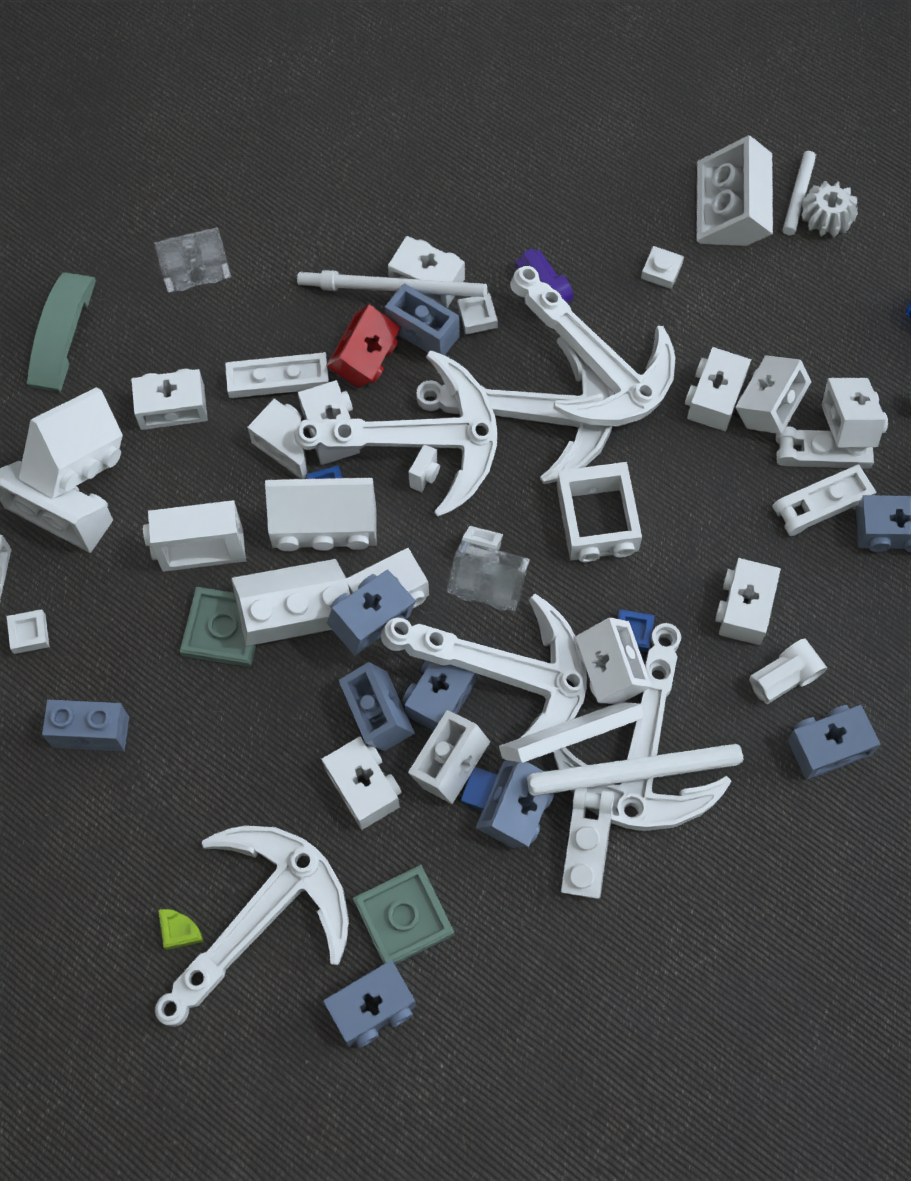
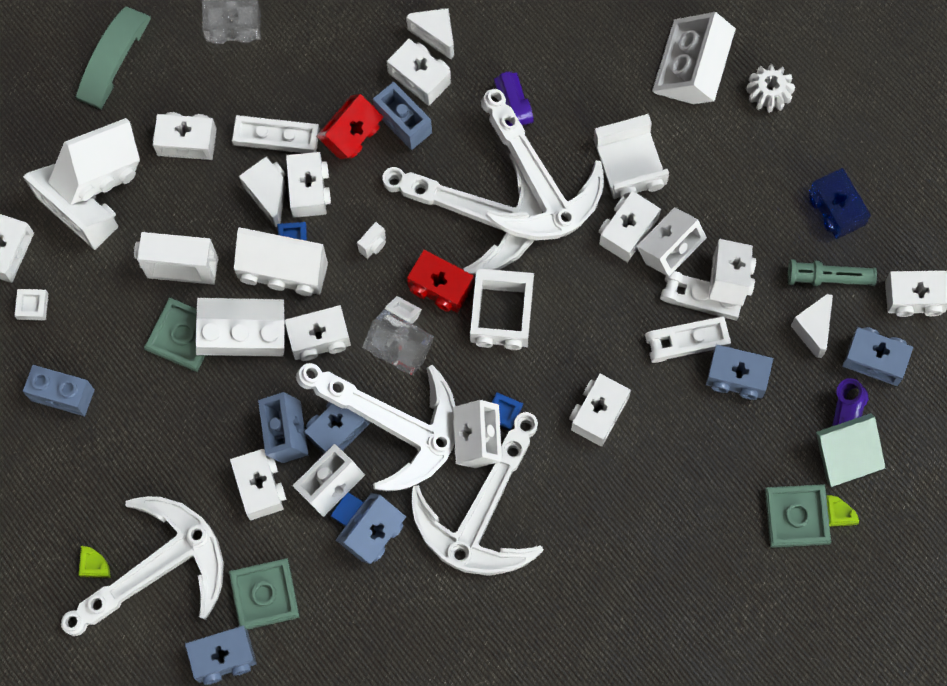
camera: 15 degrees right, 5 degrees up
(333, 280) = (341, 62): white bar -> none
(363, 614) = (285, 364): sand blue brick -> none
(431, 223) = (434, 29): none -> white slope
(436, 433) = (390, 214): white piece -> none
(477, 314) = (450, 116): white plate -> none
(505, 484) = (434, 269): none -> red brick
(571, 732) = (427, 483): white tile -> none
(587, 844) = (417, 572): white plate -> none
(634, 769) = (468, 524): white axle -> none
(662, 267) = (616, 108): white plate -> none
(694, 314) = (630, 157): none -> white panel
(795, 667) = (622, 471): white piece -> none
(799, 193) = (751, 67): white bar -> none
(819, 755) = (649, 541): sand blue brick -> none

